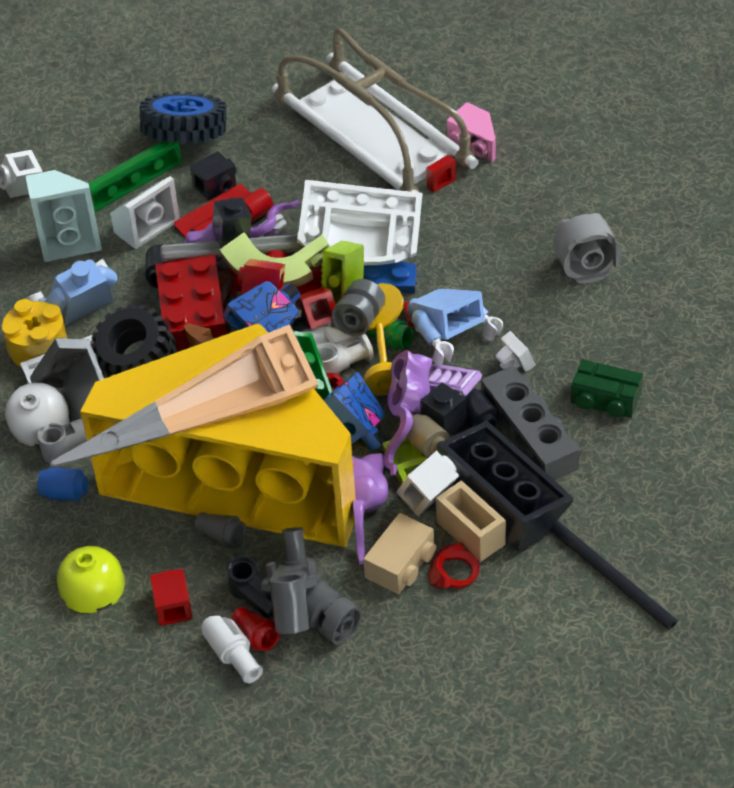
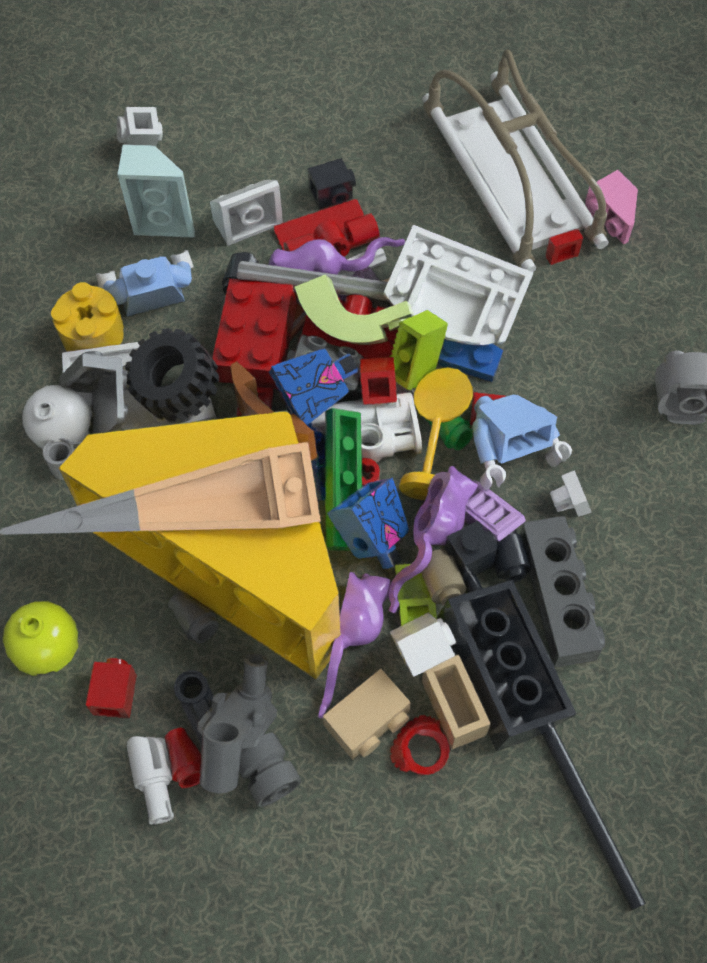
camera: 15 degrees right, 15 degrees up
(62, 484) = (47, 502): blue brick -> none
(134, 173) = (249, 159): green brick -> none
(182, 117) = (320, 108): black wheel -> none
(230, 220) = (319, 254): black brick -> none
(259, 271) = (327, 332): red brick -> none
(358, 307) = (419, 396): dark grey wheel -> none
(606, 388) = (658, 571): dark green brick -> none

